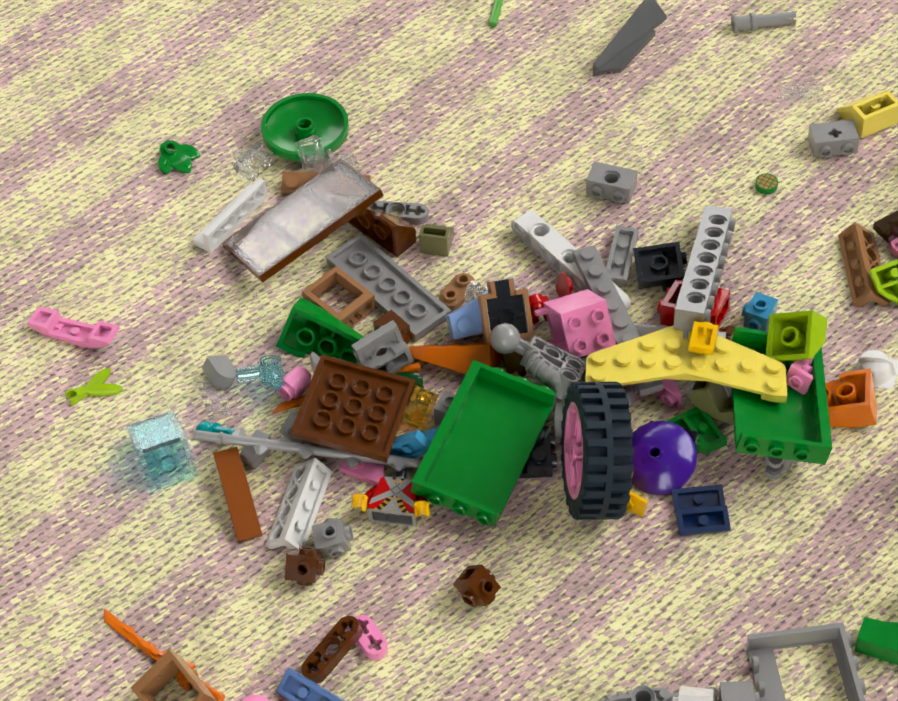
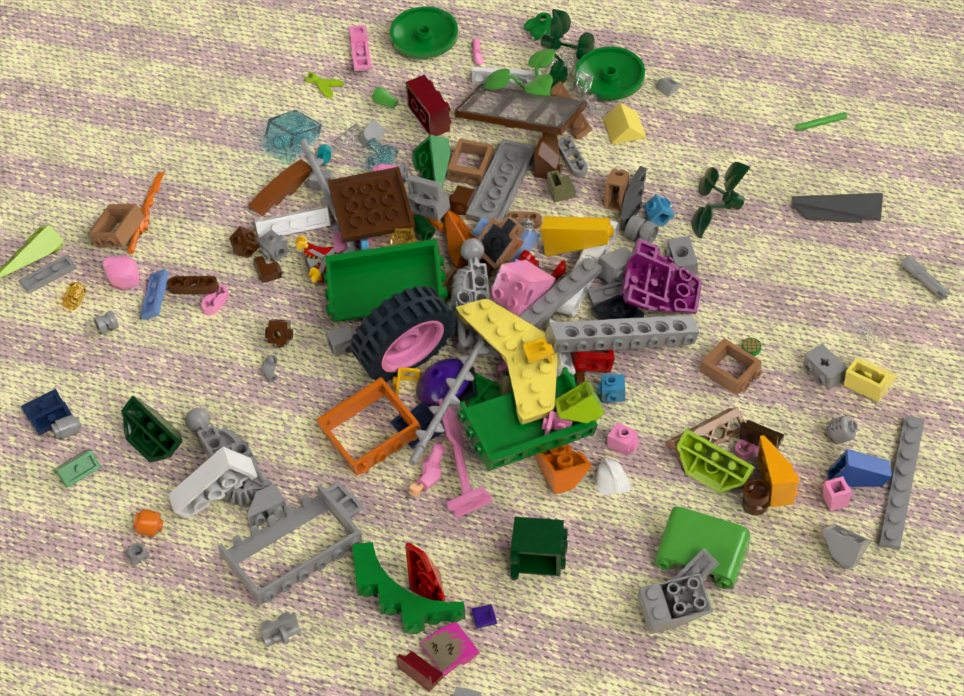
camera: 60 degrees right, 0 degrees up
(102, 257) = (424, 32): none -> green dish
(164, 226) = (476, 50): none -> bright pink piece
(171, 337) = (384, 98): none -> bright green cone
(227, 148) = (560, 25): none -> dark green plant
(228, 298) = (428, 105): none -> dark red brick
(251, 162) = (539, 86): none -> bright green plant
(354, 94) = (667, 86): none -> light grey slope
(362, 565) = (269, 271): none -> reddish brown piece
(383, 153) = (623, 125): none -> light yellow slope
(480, 191) = (616, 182): none -> medium nougat torso
(501, 189) = (633, 197): none -> dark grey slope
(517, 624) = (269, 366): none -> light grey arm
(522, 115) = (730, 198): none -> dark green plant
(529, 530) = (340, 340): none -> light grey brick
(532, 245) = (574, 233): none -> yellow slope
(541, 168) = (658, 210): none -> dark azure brick
(554, 197) = (638, 228): none -> light grey wheel
(592, 231) = (614, 264): none -> light grey brick
(643, 213) = (657, 283): none -> magenta wedge
(678, 510) = (356, 404): none -> orange window
(712, 451) = (450, 399): none -> light grey plant
(774, 622) = (346, 501): none -> light grey slope
(781, 226) = (725, 347): none -> medium nougat window
(781, 525) = (430, 471): none -> bright pink arm
(838, 335) = (623, 439): none -> bright pink brick
(847, 501) = (470, 498): none -> bright pink piece

